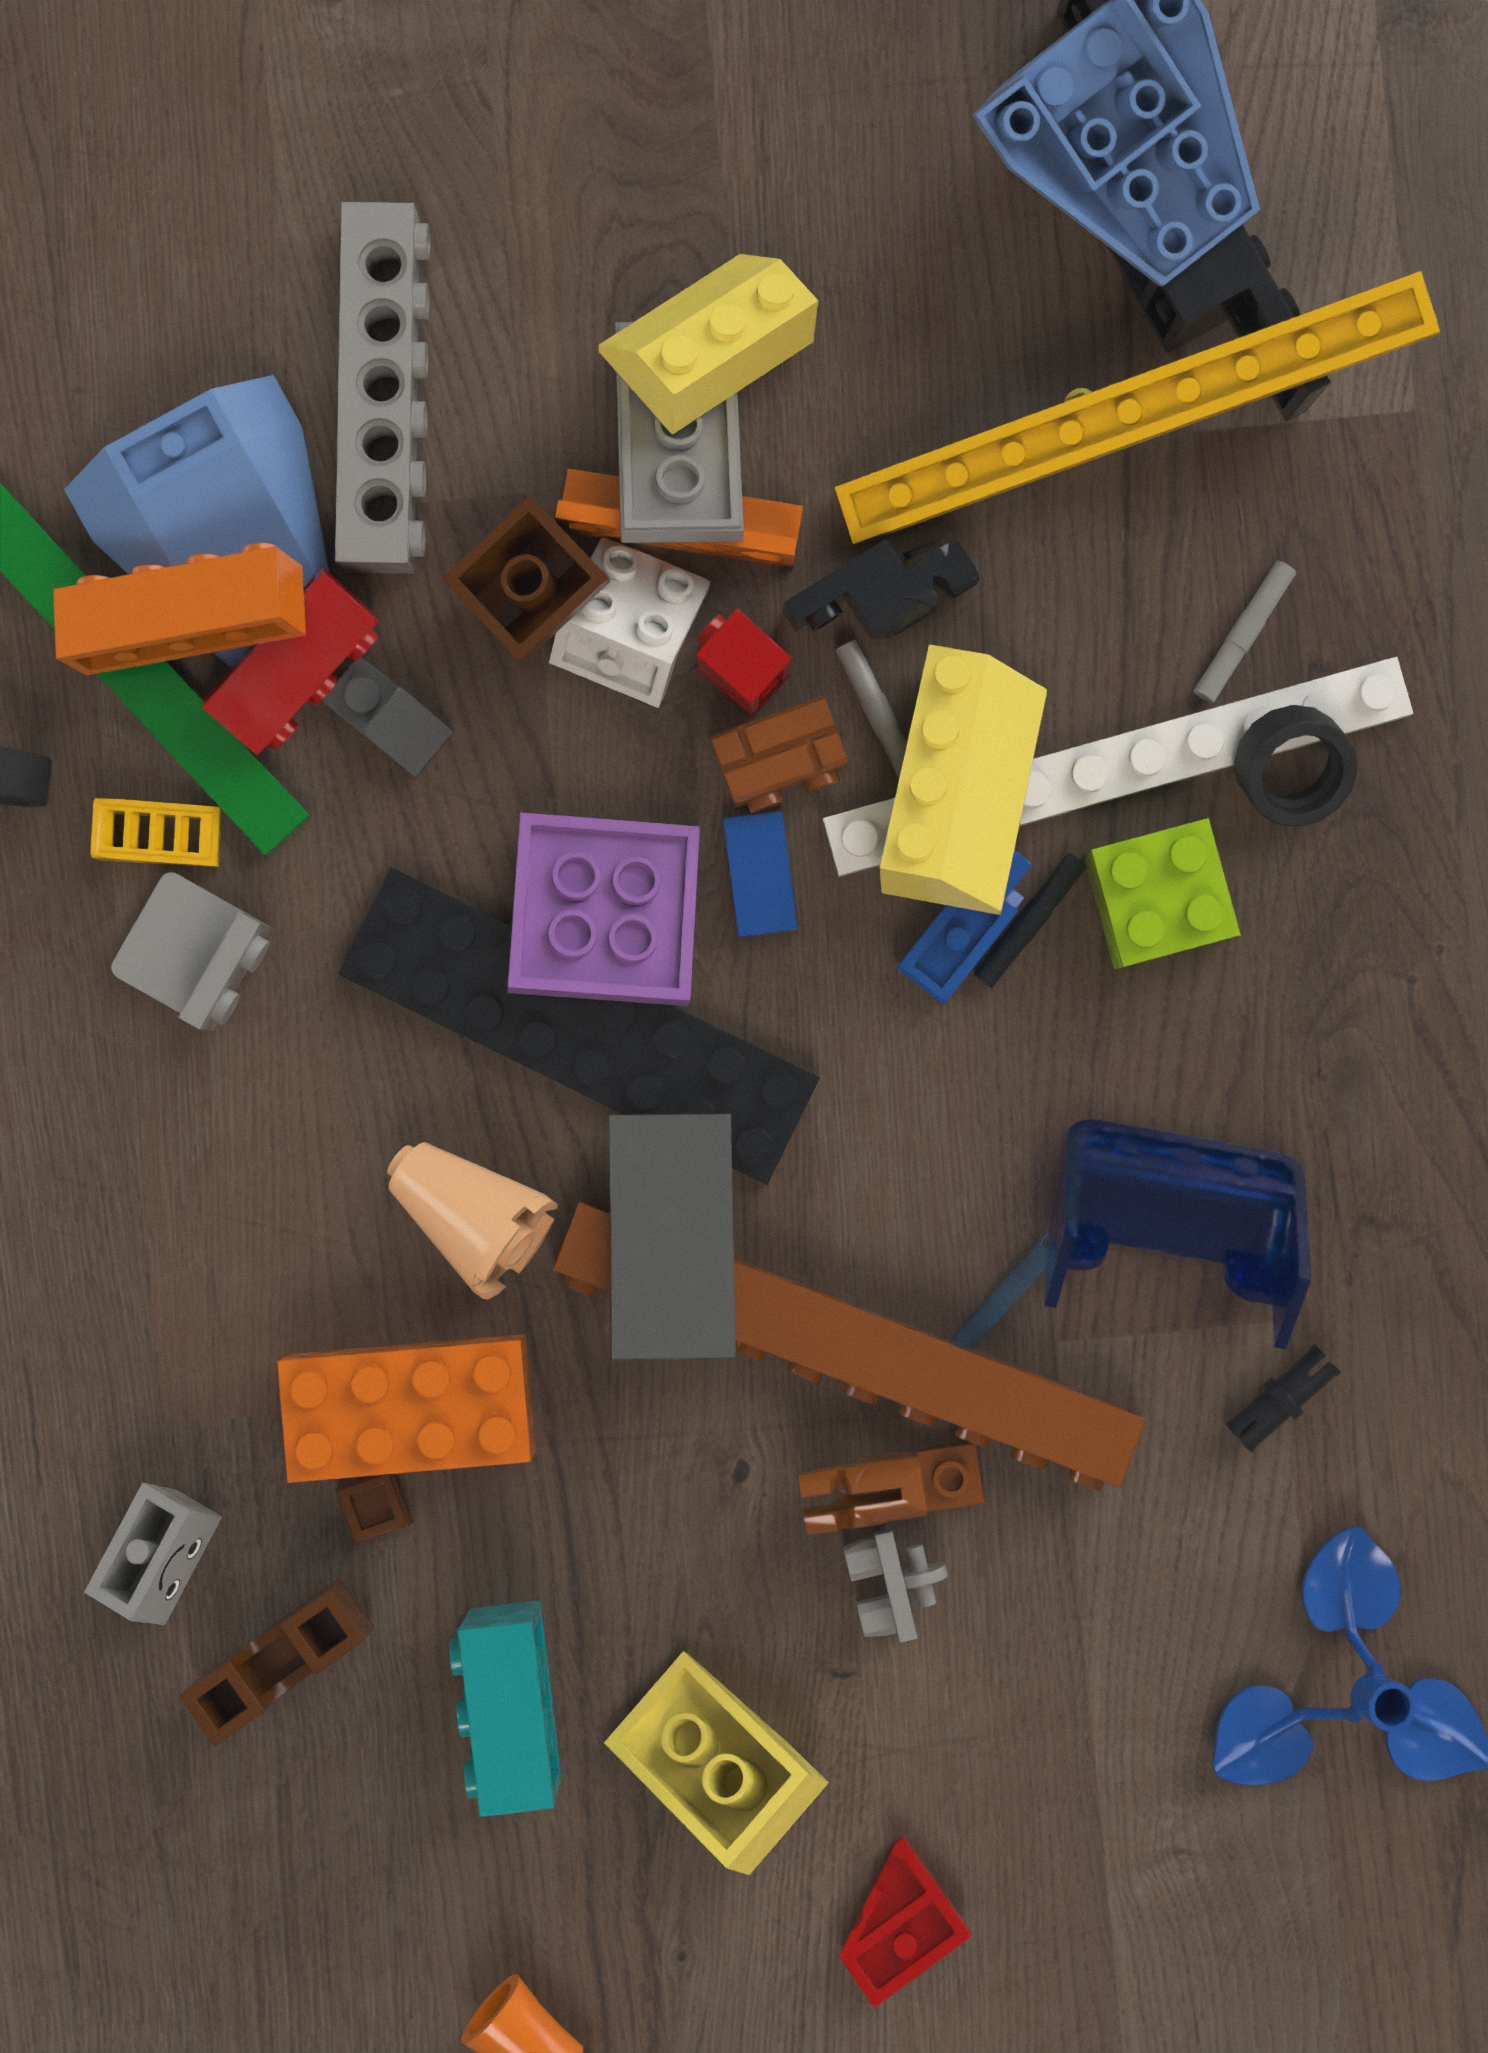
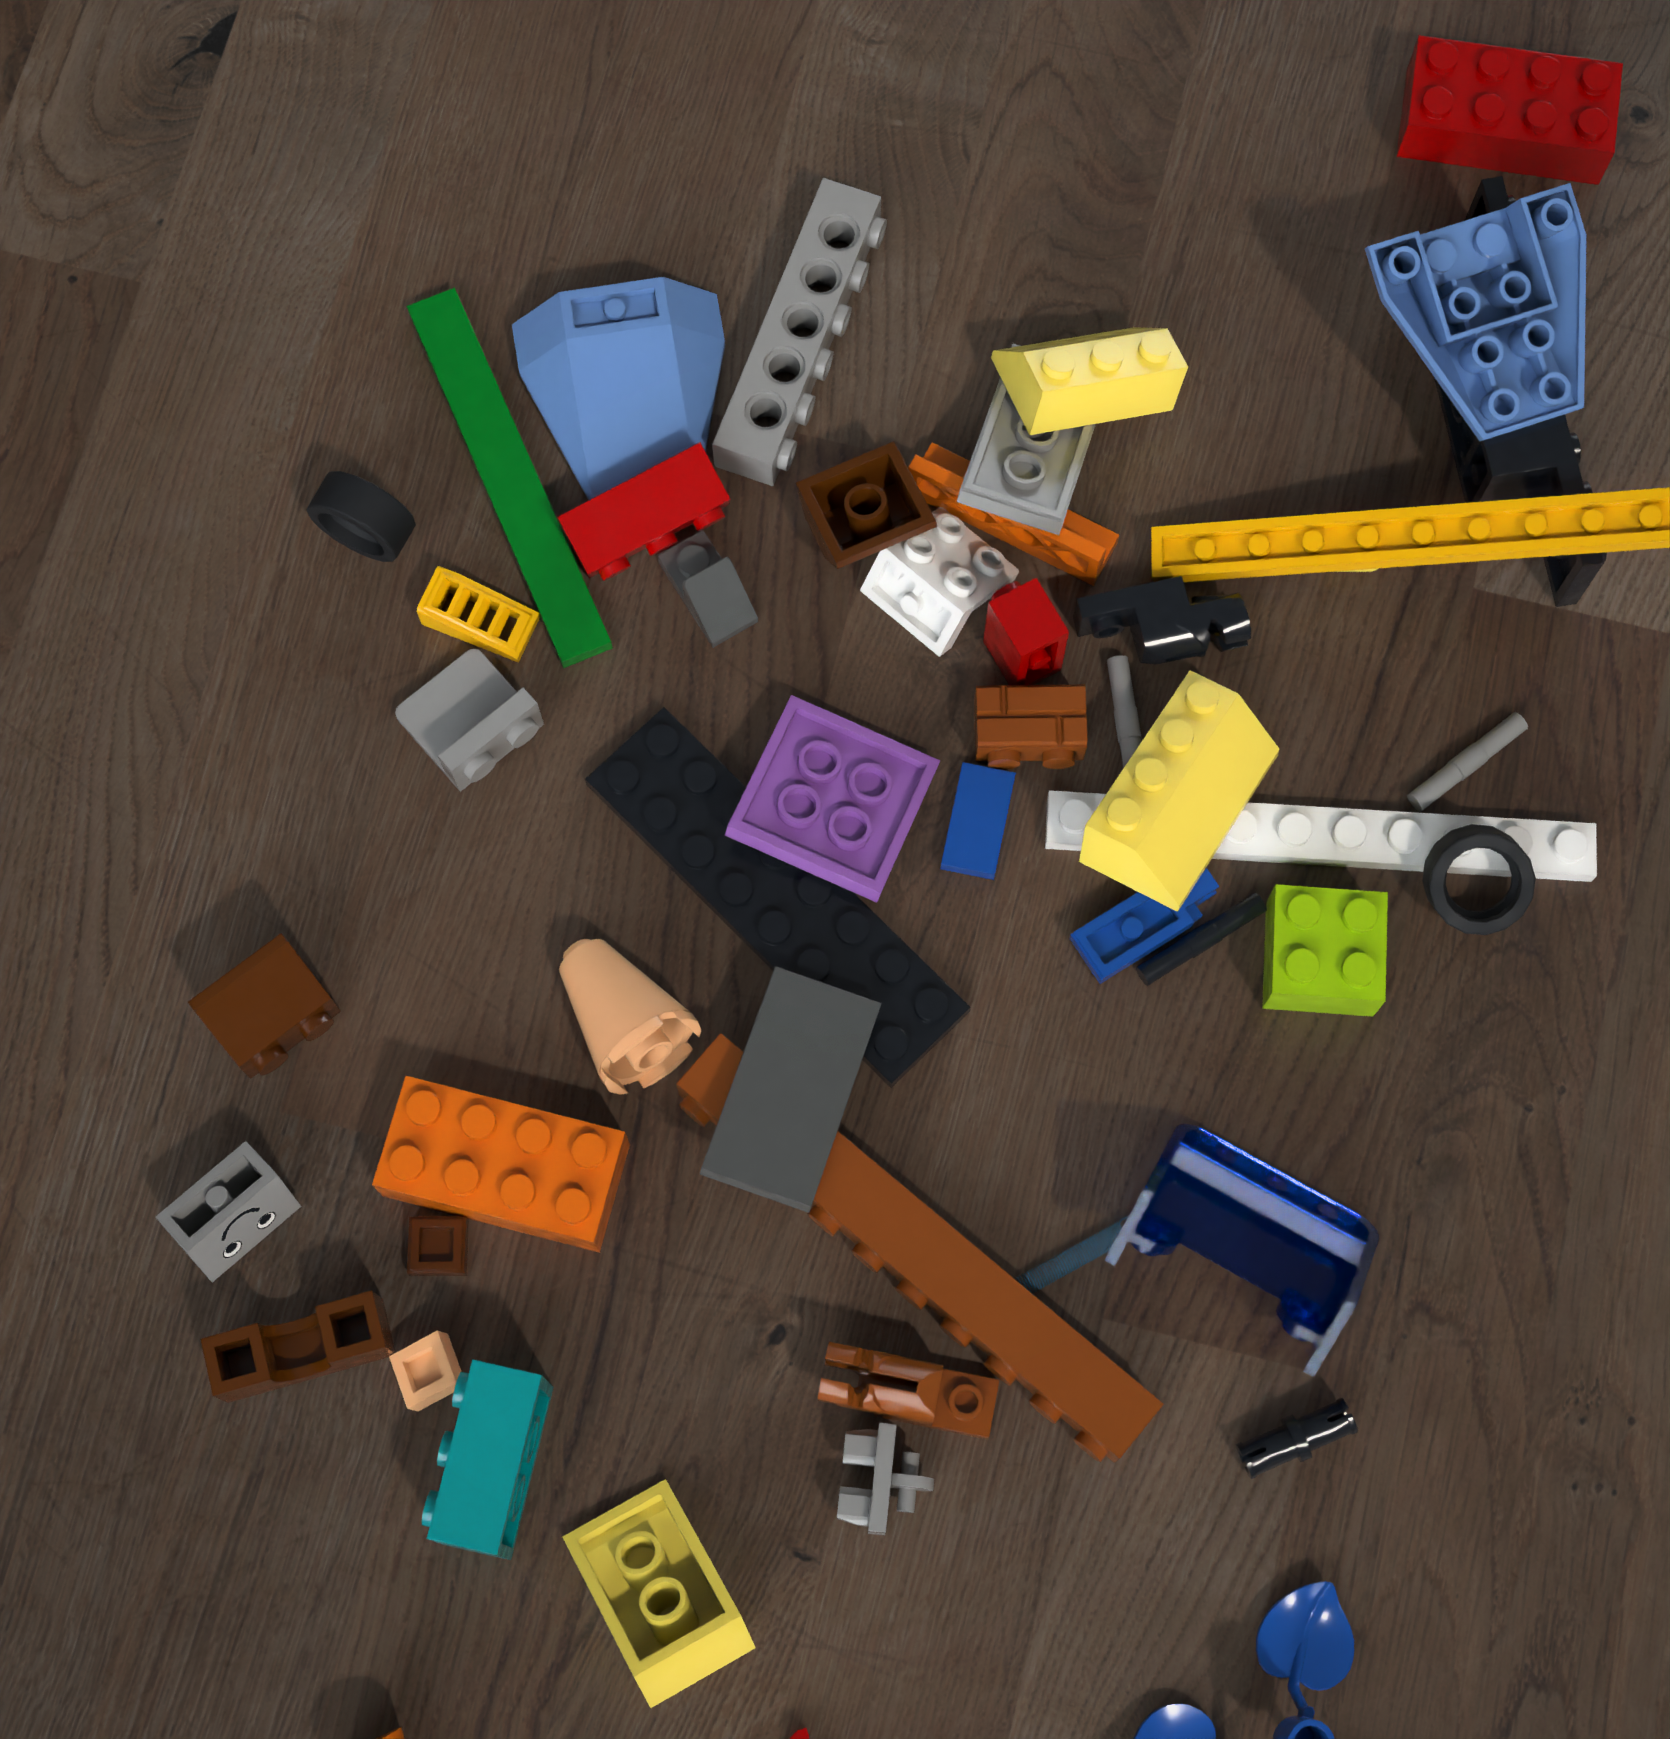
camera: 20 degrees right, 15 degrees down
(108, 1337) = (265, 1007): none -> reddish brown slope
(179, 610) = (570, 434): orange brick -> none
(412, 1634) = (426, 1370): none -> light nougat plate

